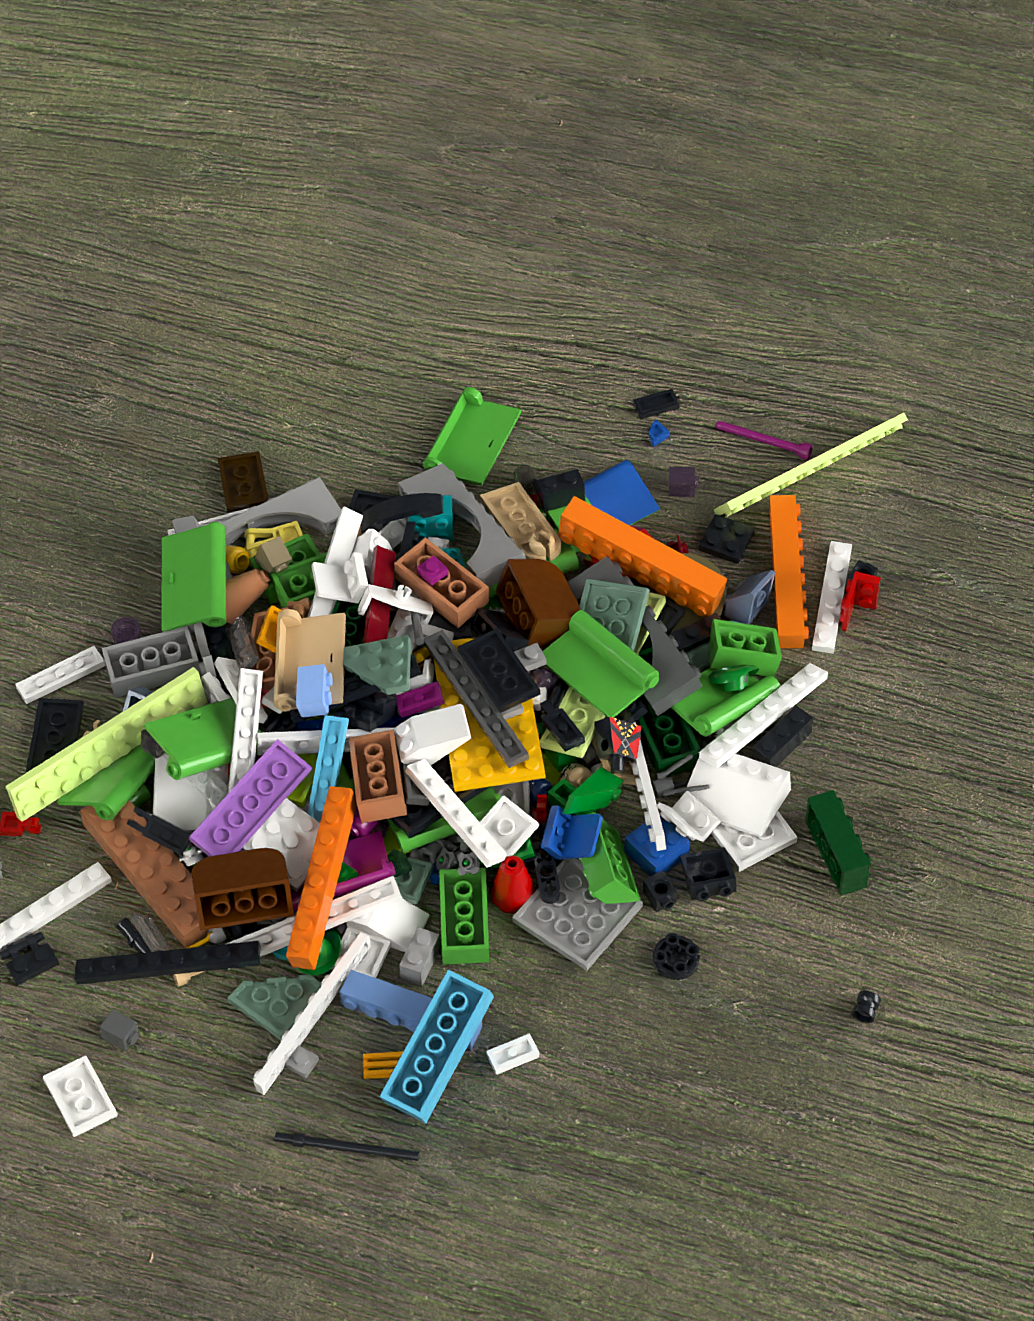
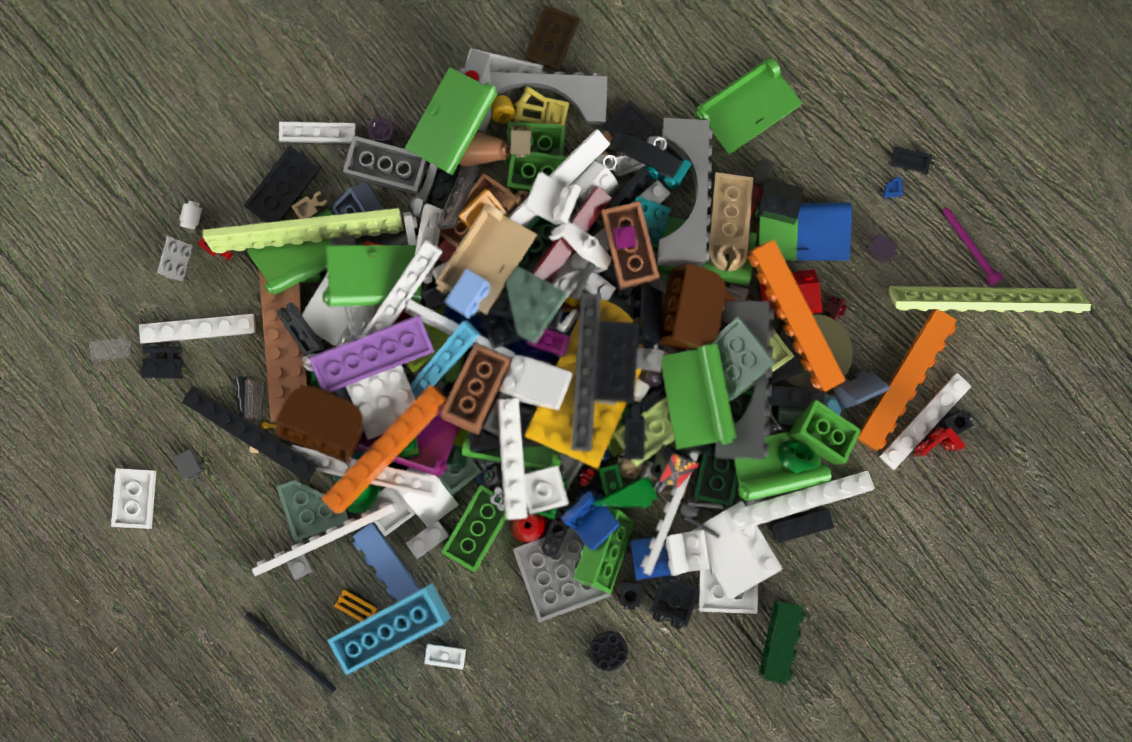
camera: 30 degrees right, 30 degrees up
(726, 539) = (881, 319): black plate -> none

